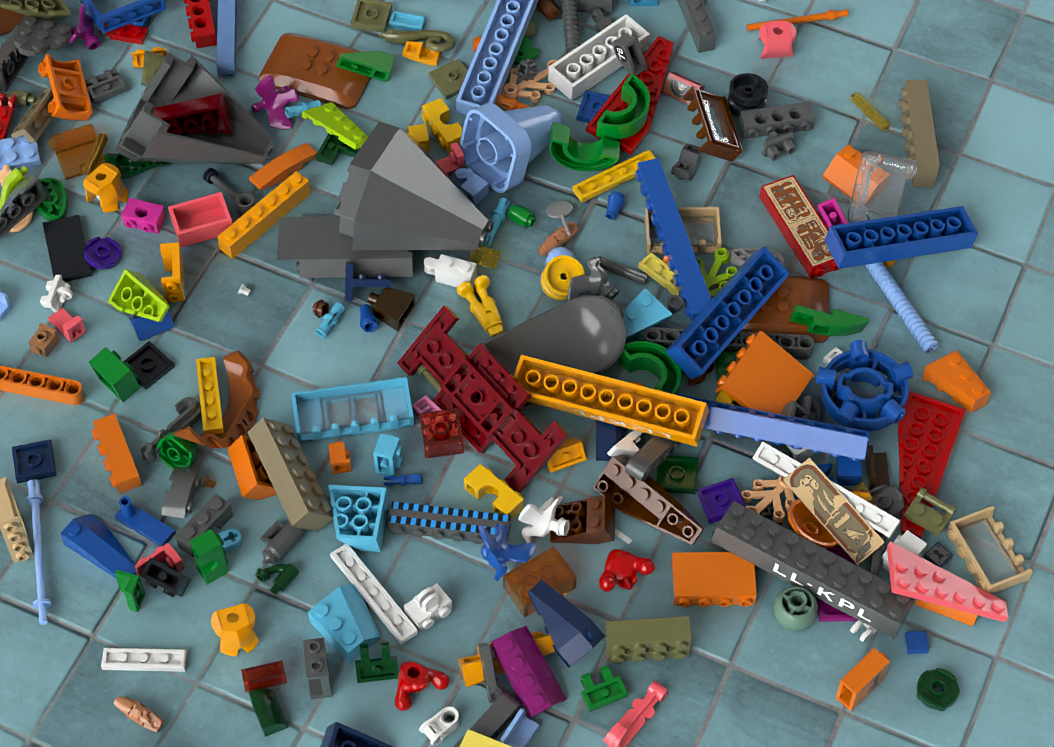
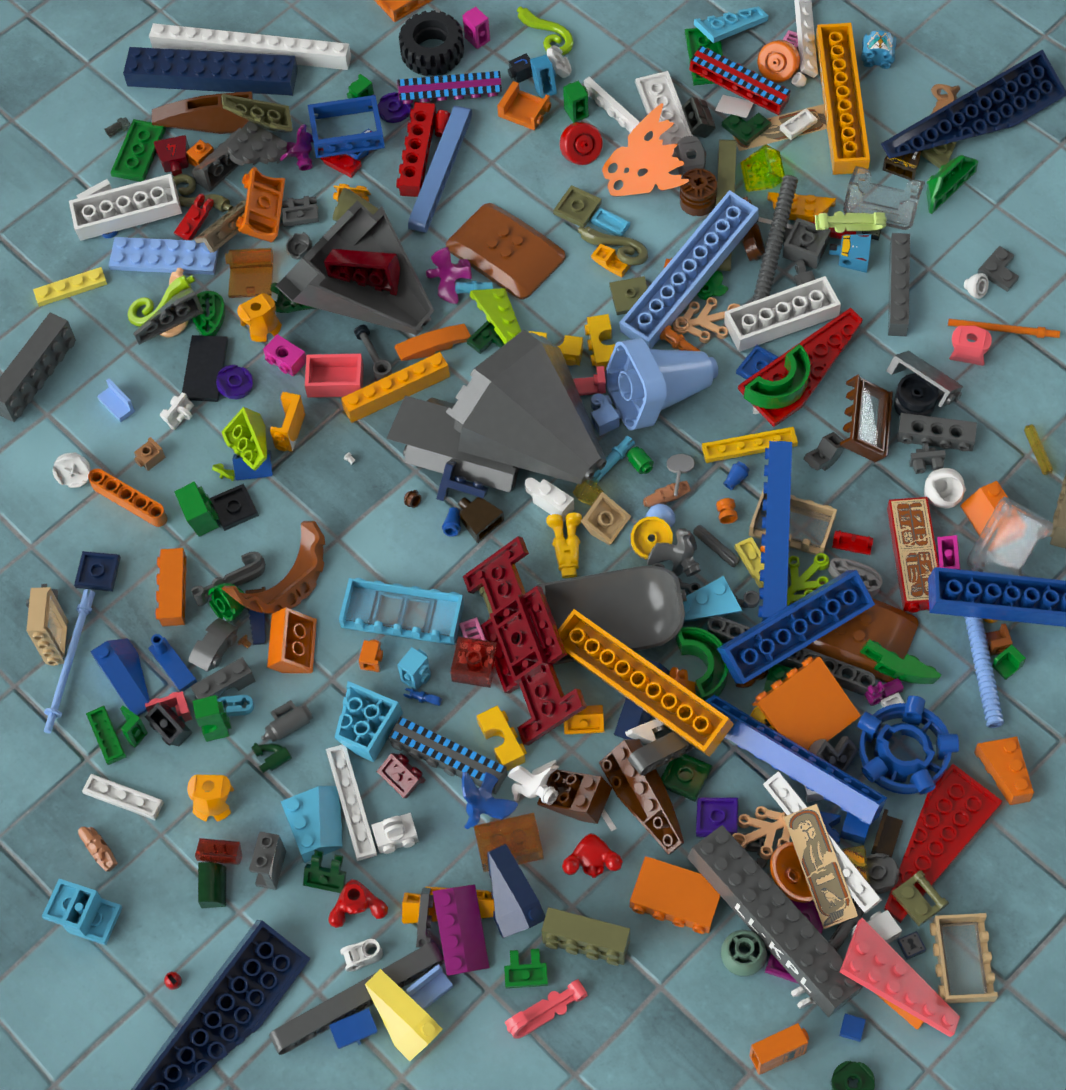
camera: 25 degrees right, 5 degrees up
(68, 326) = (176, 445): coral bracket -> none
(95, 154) = (263, 280): pearl gold axle -> none
(104, 608) = (106, 735): none -> green plate
(117, 115) = (298, 245): none -> dark grey hair
(124, 336) = (223, 472): none -> lime piece
(209, 396) = (275, 556): yellow plate -> none
(214, 461) = (257, 622): none -> dark blue piece
(290, 475) = (317, 660): dark tan brick -> none
(330, 320) = (415, 511): medium azure pin -> none
(369, 63) = (555, 259): green slope -> none
(410, 554) = (400, 774): none -> bracket
(510, 275) = (605, 519): none -> tan slope
(527, 69) = (704, 307): dark grey gear -> none
(579, 155) = (722, 413): green brick -> none
(619, 237) = (727, 511): none -> orange wheel
(630, 54) = (810, 321): dark grey slope -> none
(678, 85) = (852, 364): panel -> none
(724, 65) = (929, 373): none -> dark grey panel
(742, 233) = (852, 542): none -> red hinge
(805, 163) = (944, 488): none -> white piece
(822, 348) = (880, 691): none -> magenta bar
(906, 277) = (998, 640): none -> dark orange panel
(921, 292) = (1008, 662): none -> green panel

